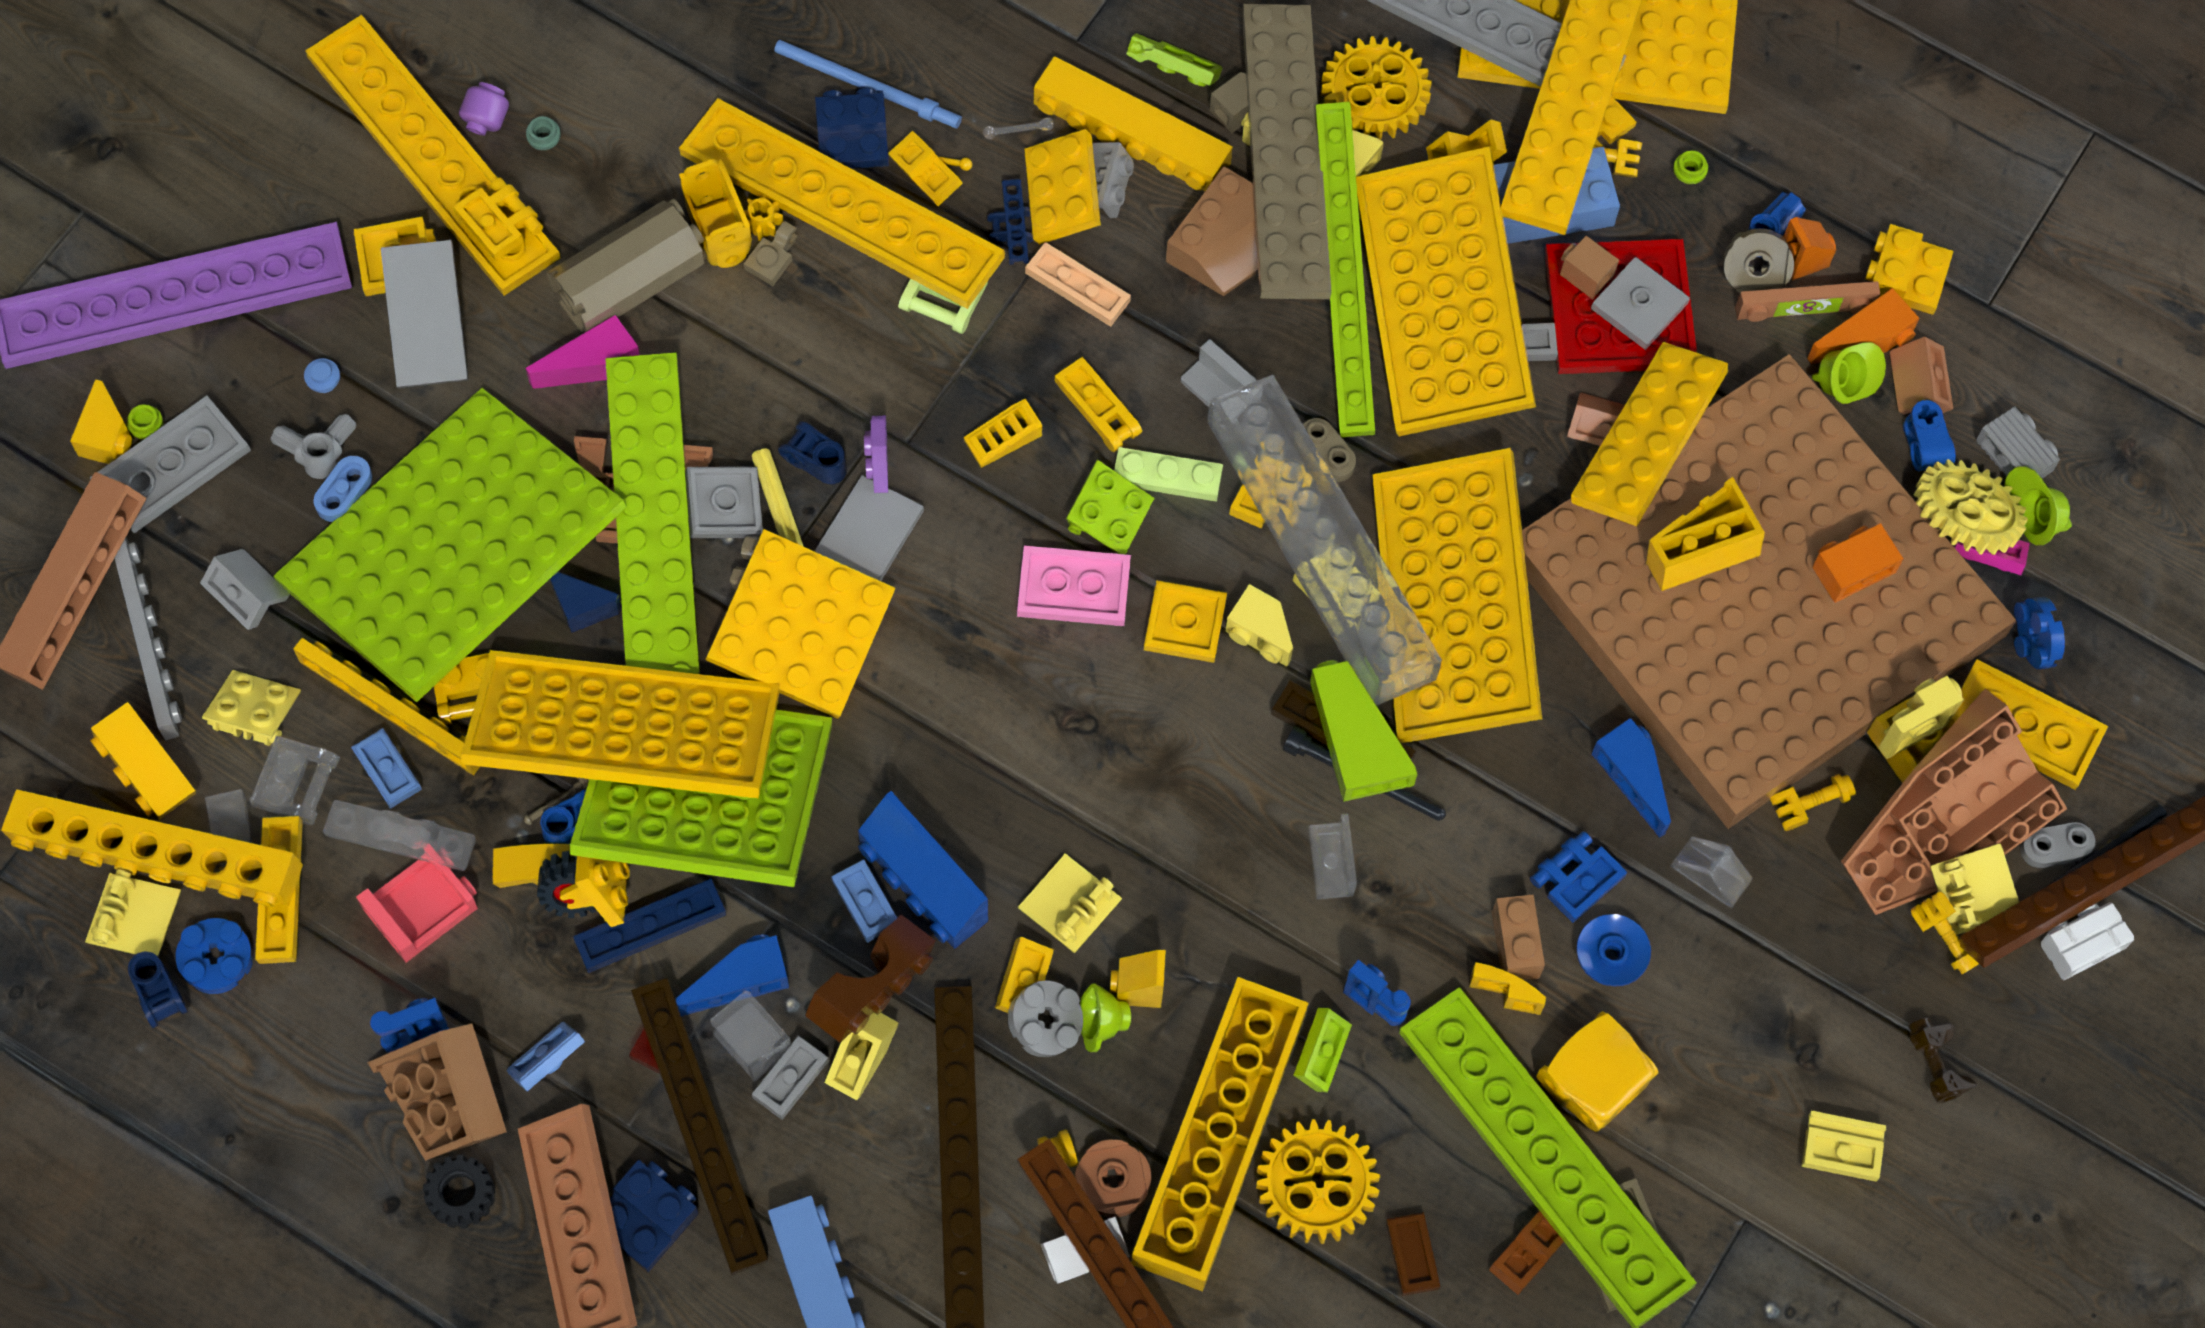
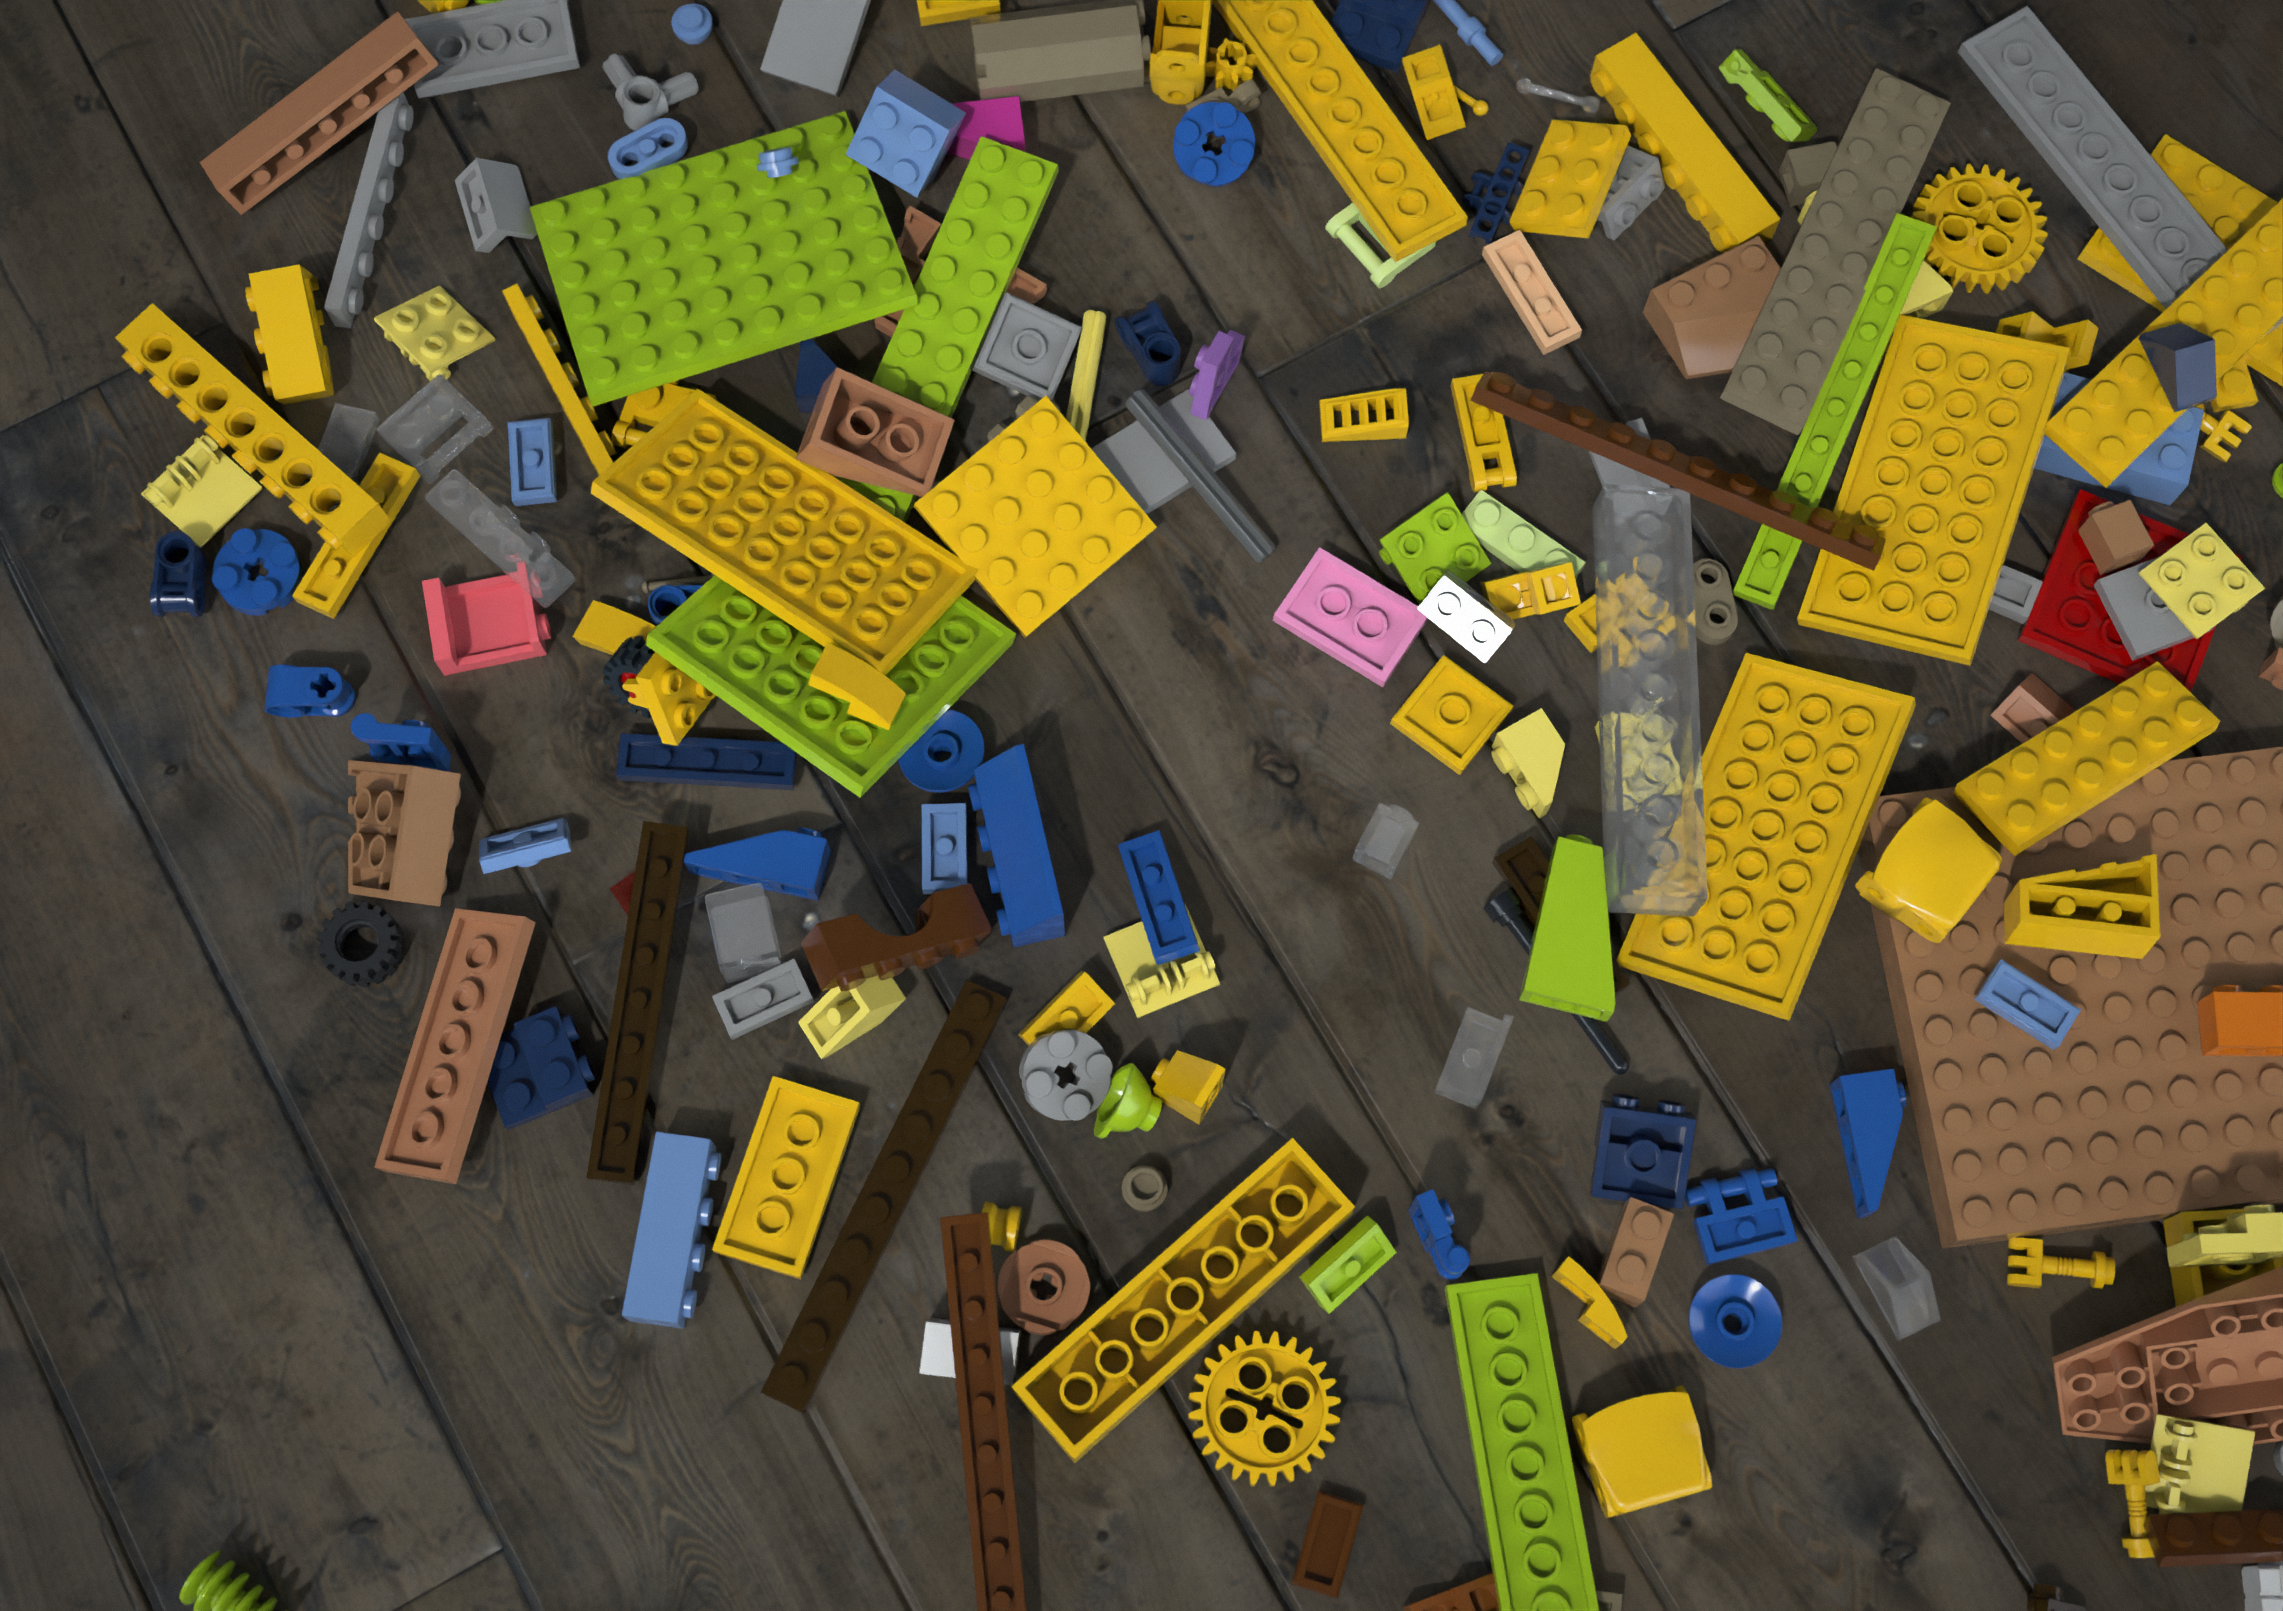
camera: 30 degrees right, 5 degrees up
(304, 1027) = (301, 692): none -> blue piece
(457, 450) = (777, 162): none -> medium blue plate
(545, 382) = (905, 133): none -> medium blue brick
(648, 620) = (874, 435): none -> nougat slope
(742, 804) = (869, 691): none -> yellow slope
(783, 303) = (1205, 167): none -> blue plate
(833, 815) = (950, 734): none -> blue dish
(880, 1197) = (786, 1177): none -> yellow plate
(906, 534) = (1200, 475): none -> dark grey axle
(1044, 857) = (1158, 898): none -> blue plate
(1146, 1071) = (1144, 1188): none -> dark tan plate
(1159, 543) = (1466, 616): none -> brick
(1187, 734) = (1386, 839): none -> clear brick
(1195, 505) = (1534, 591): none -> yellow slope
(1245, 364) = (1691, 474): none -> reddish brown plate
(1487, 864) = (1642, 1151): none -> dark blue plate
(1573, 121) = (2182, 364): none -> slope
(1585, 565) = (1930, 871): none -> yellow piece
(1664, 270) = (2201, 580): none -> light yellow hinge
(1699, 625) = (2027, 1004): none -> medium blue plate

